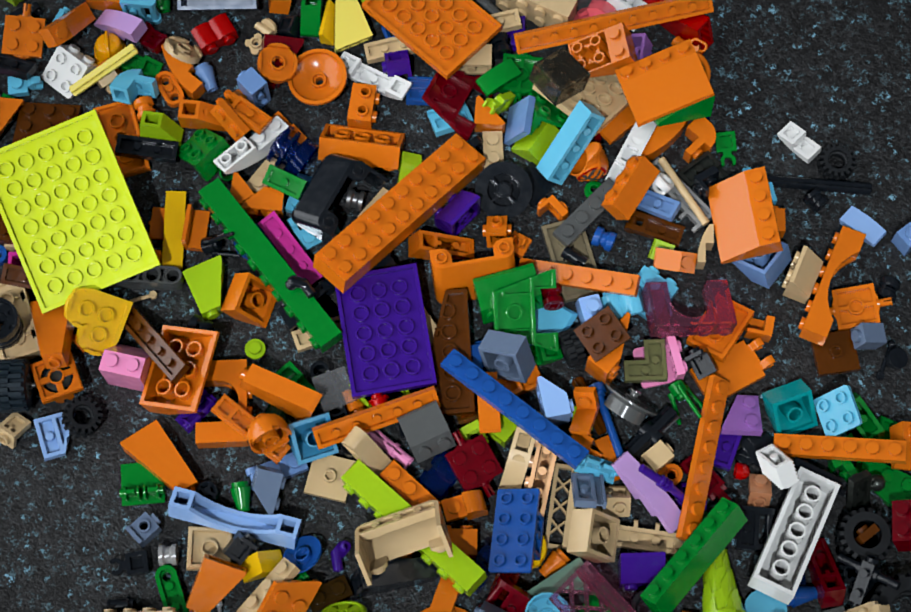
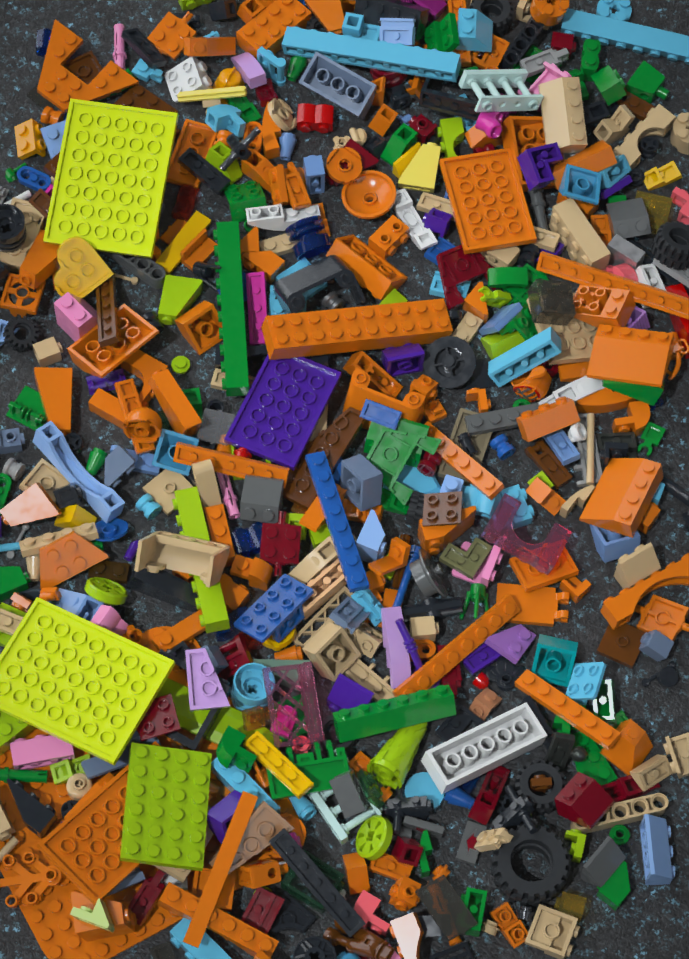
camera: 30 degrees right, 5 degrees down
(120, 417) = (47, 351): none -> tan brick
(149, 189) = (185, 202): none -> clear red slope
(168, 105) = (239, 148): none -> black piece
(284, 182) = (287, 255): green plate -> none
(302, 283) = (244, 333): black arm -> none
(323, 507) = (148, 506): none -> medium azure wheel
(482, 280) = (380, 414): none -> tile
(701, 362) = (508, 580): black bracket -> none
(777, 466) = (507, 690): white brick -> none

